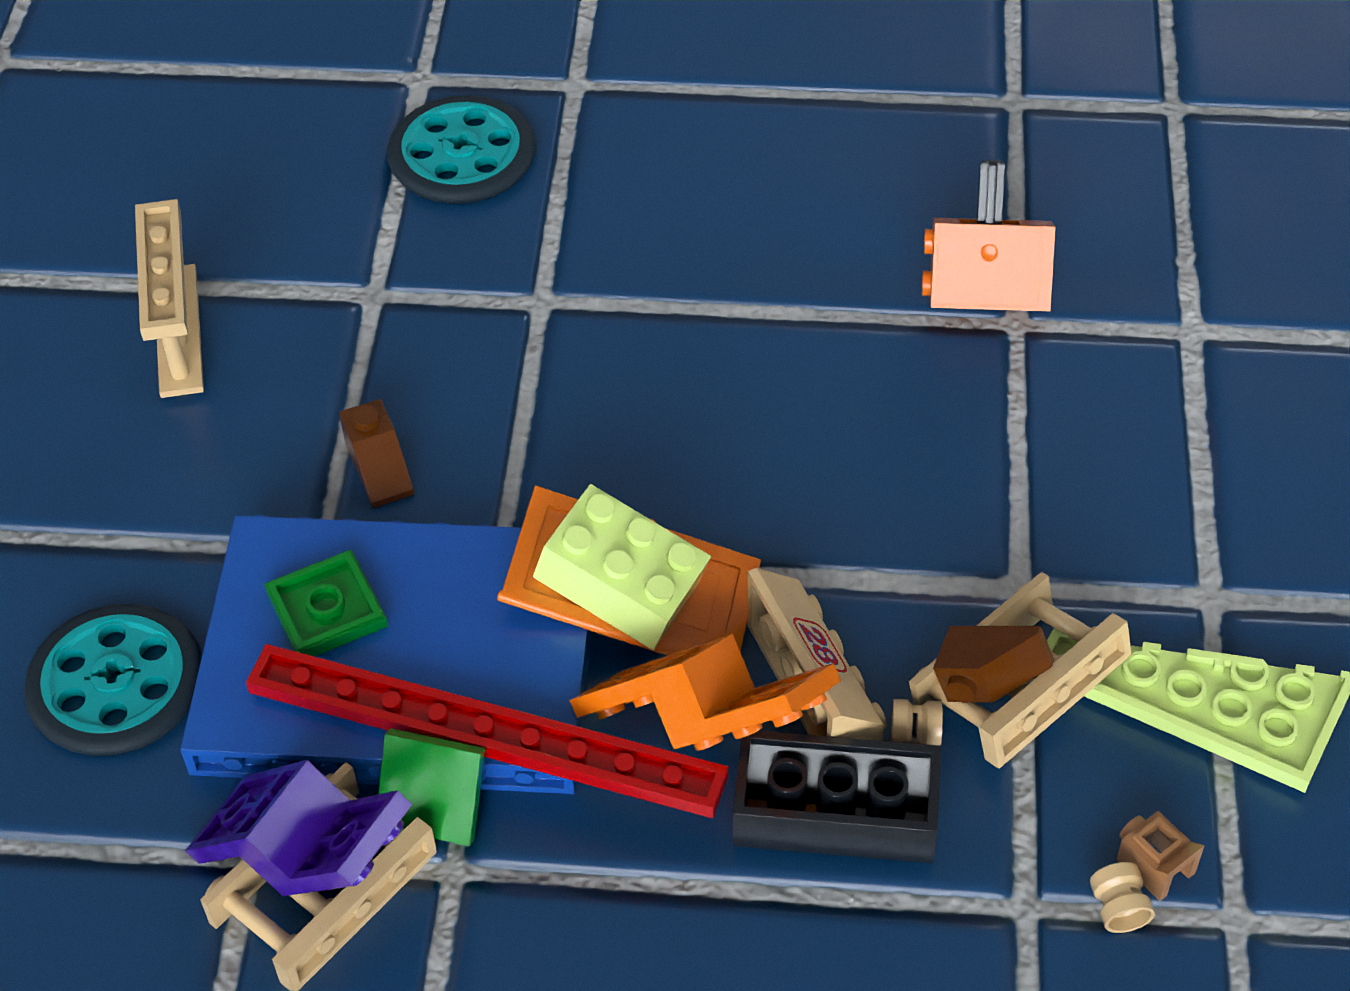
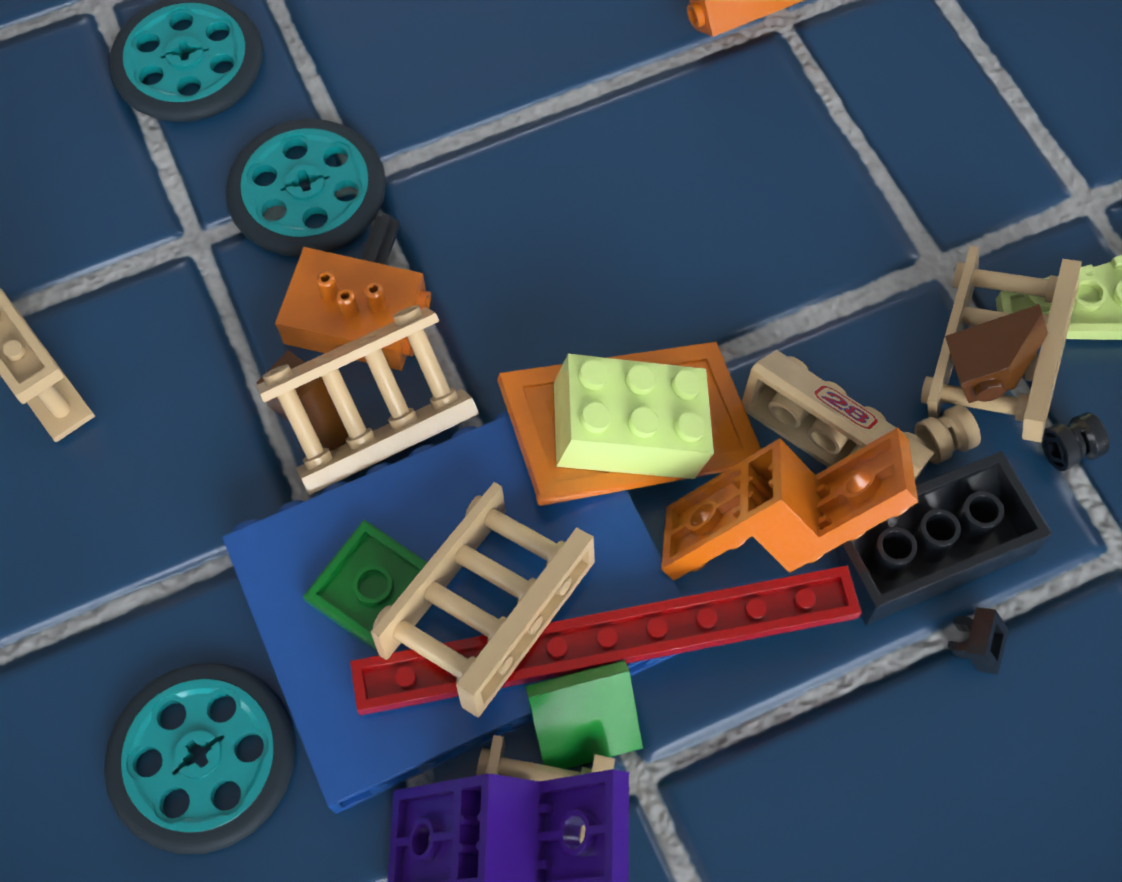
camera: 30 degrees left, 15 degrees up
(396, 501) = (363, 445): none -> tan fence
(411, 674) = (508, 637): none -> tan fence
(465, 394) = (347, 297): none -> orange piece
(506, 327) = (267, 153): none -> wedge
(829, 904) = (985, 640): none -> black tile
(1024, 785) = (1079, 439): none -> black wheel

